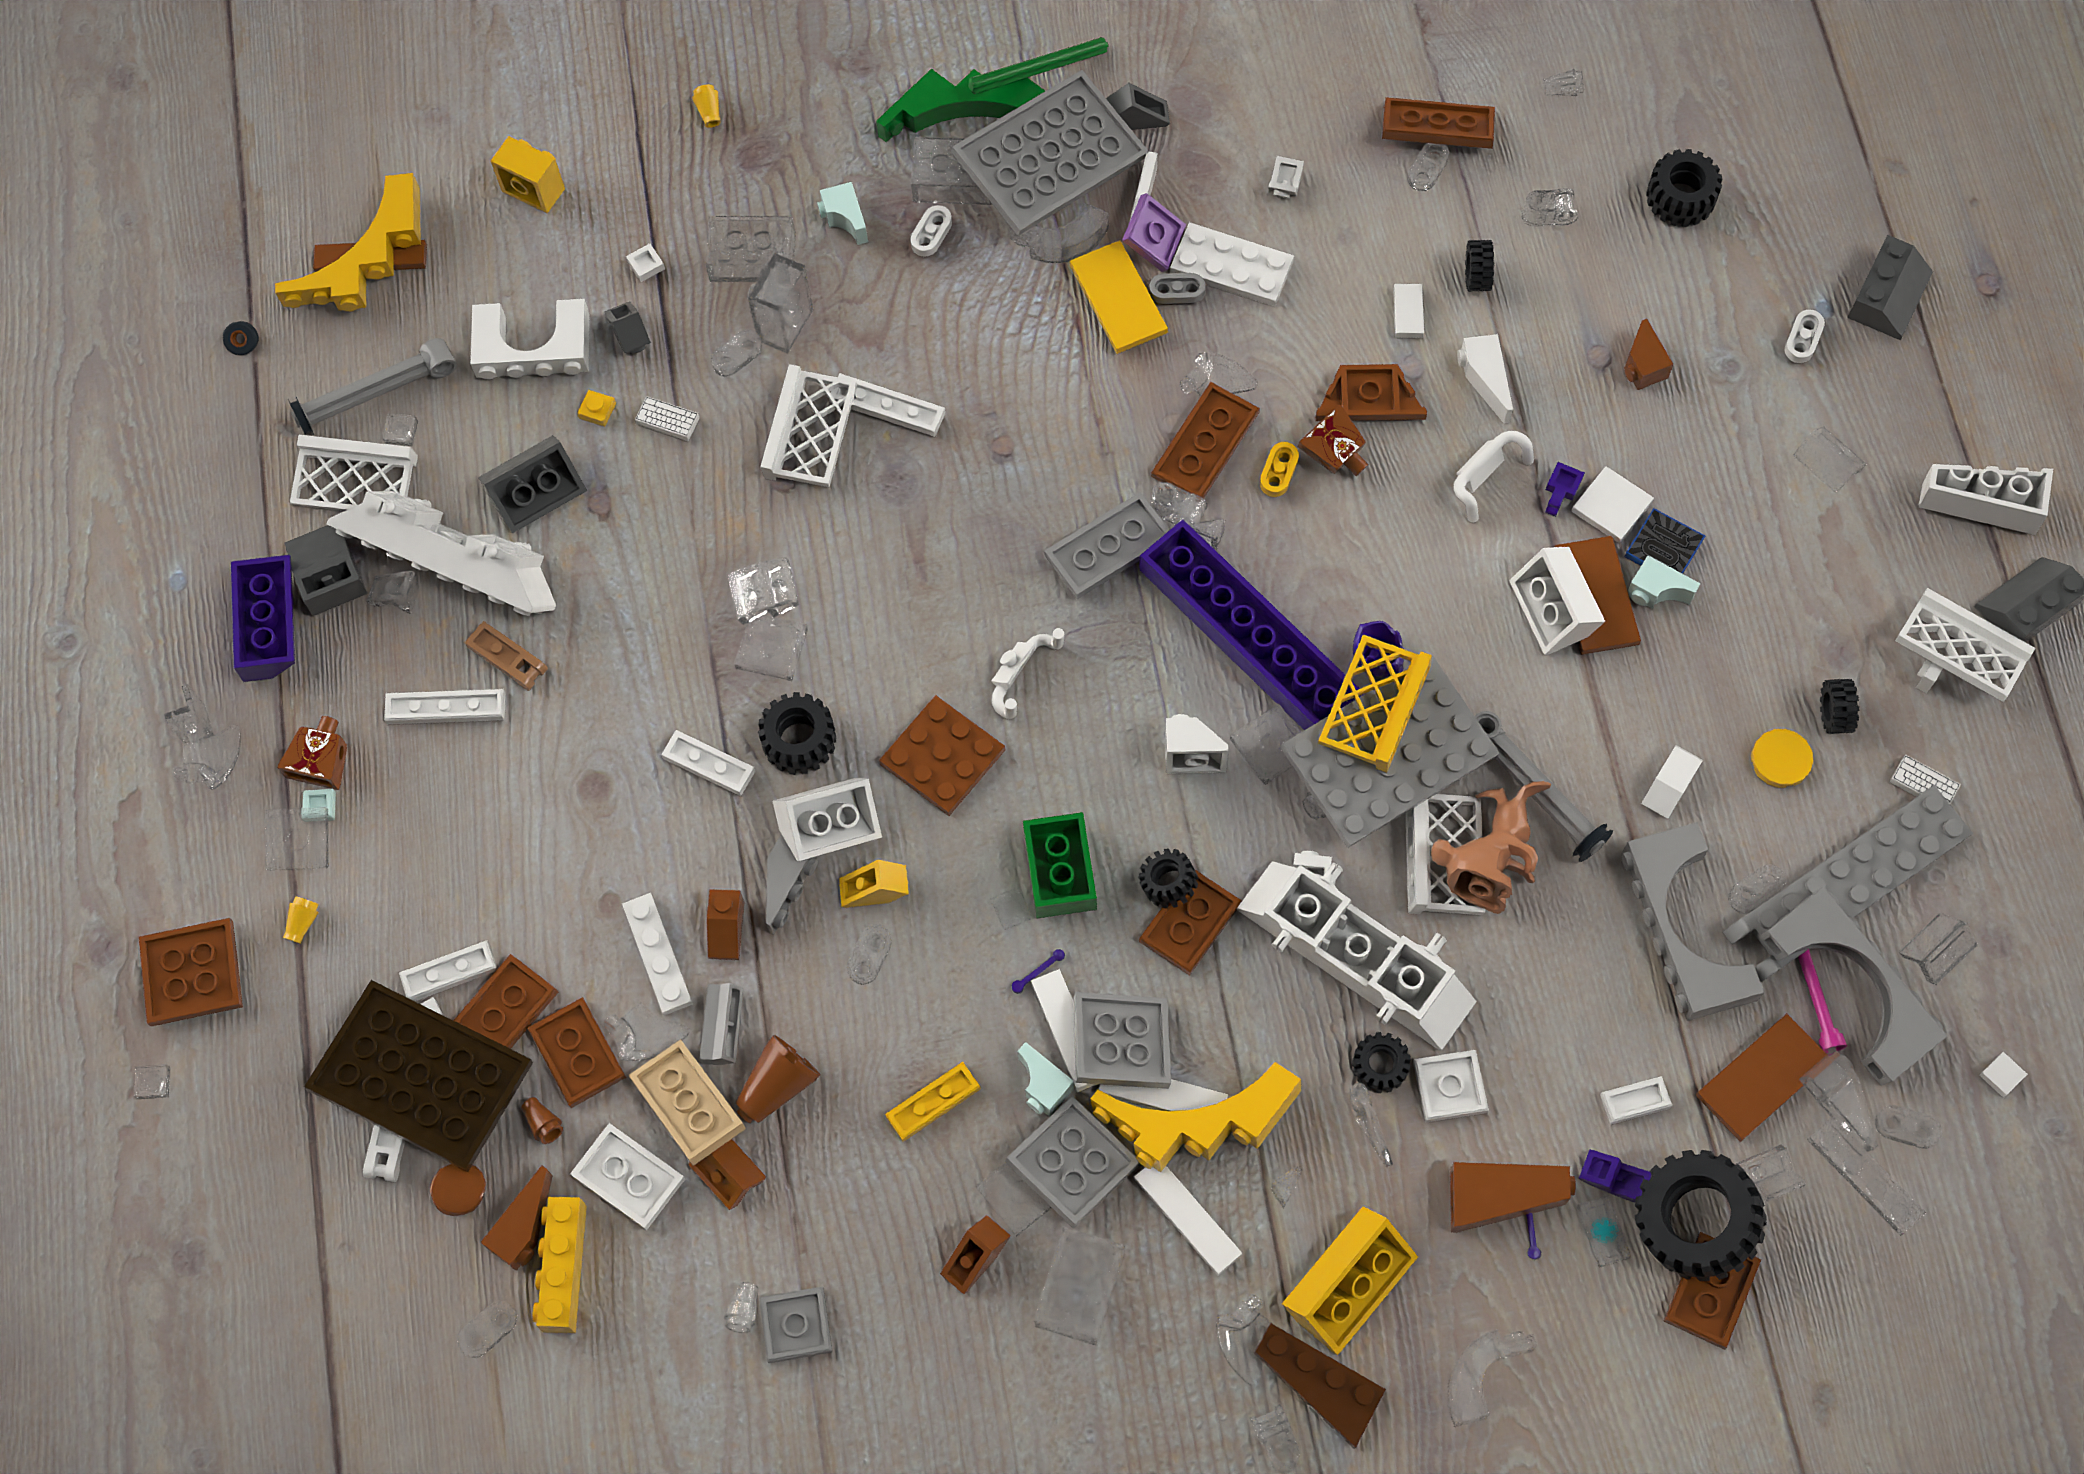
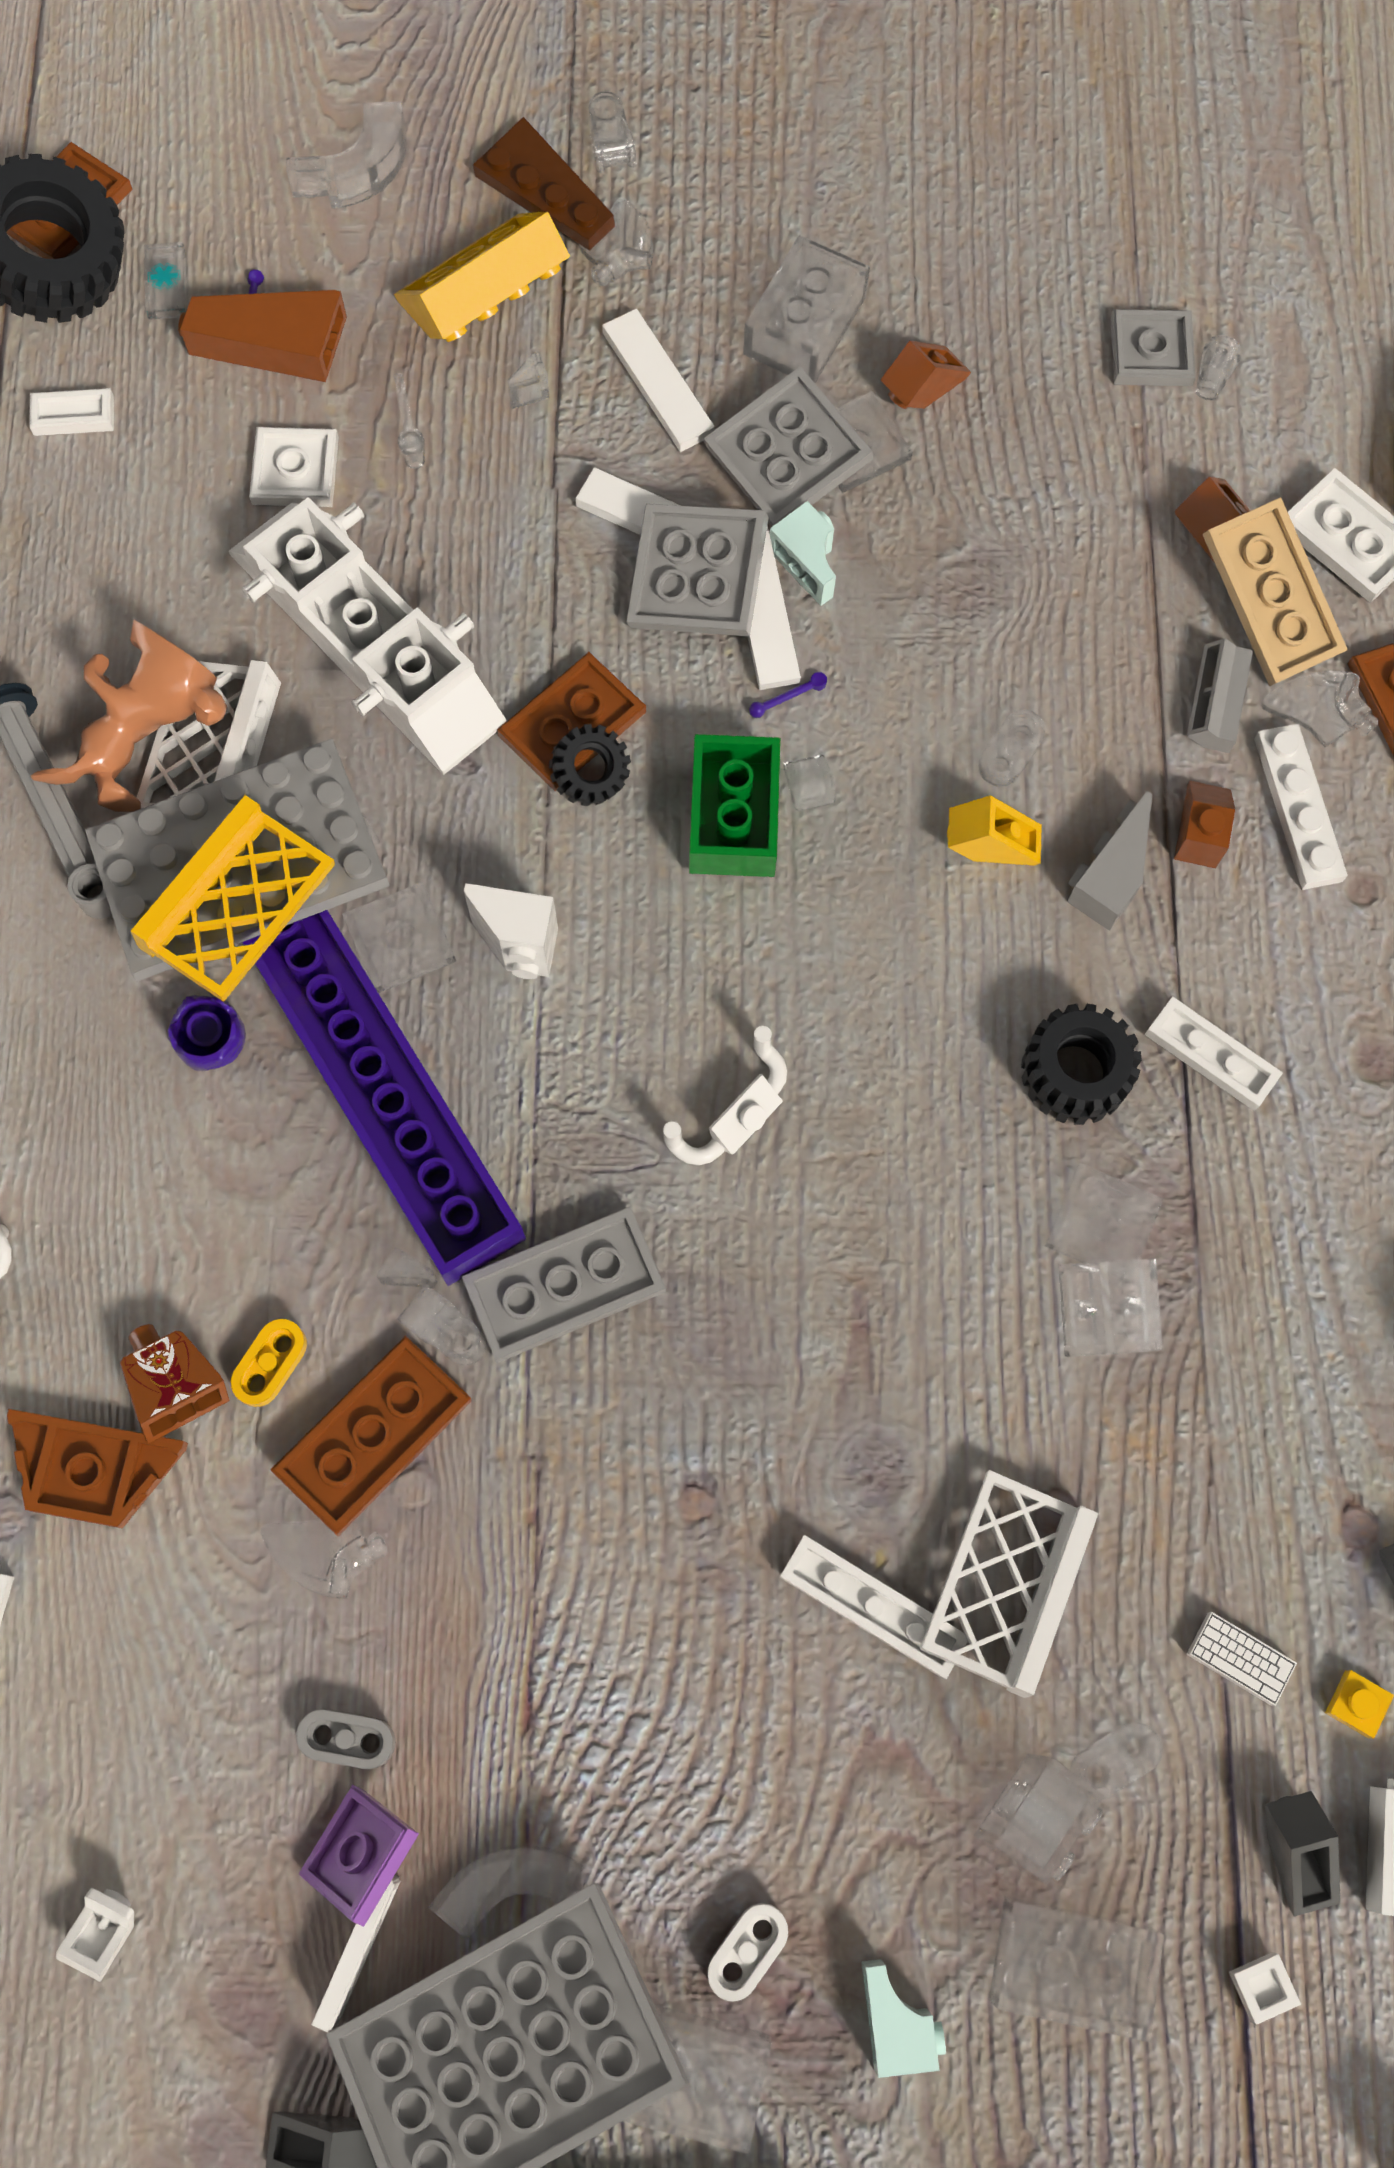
camera: 175 degrees left, 5 degrees up
(774, 1080) = (1150, 606): dark orange cone -> none
(828, 818) = (1051, 922): white slope -> none
(932, 1101) = (951, 561): yellow tile -> none
(942, 755) = (871, 1008): dark orange plate -> none
(1118, 297) = (449, 1743): yellow tile -> none
(1204, 1129) = (559, 455): yellow arch -> none
(1233, 264) = (241, 1776): white plate -> none
(1313, 862) = (386, 752): white bracket -> none
(1386, 1044) = (372, 480): black tyre -> none
(1613, 1176) = (126, 332): dark purple slope -> none

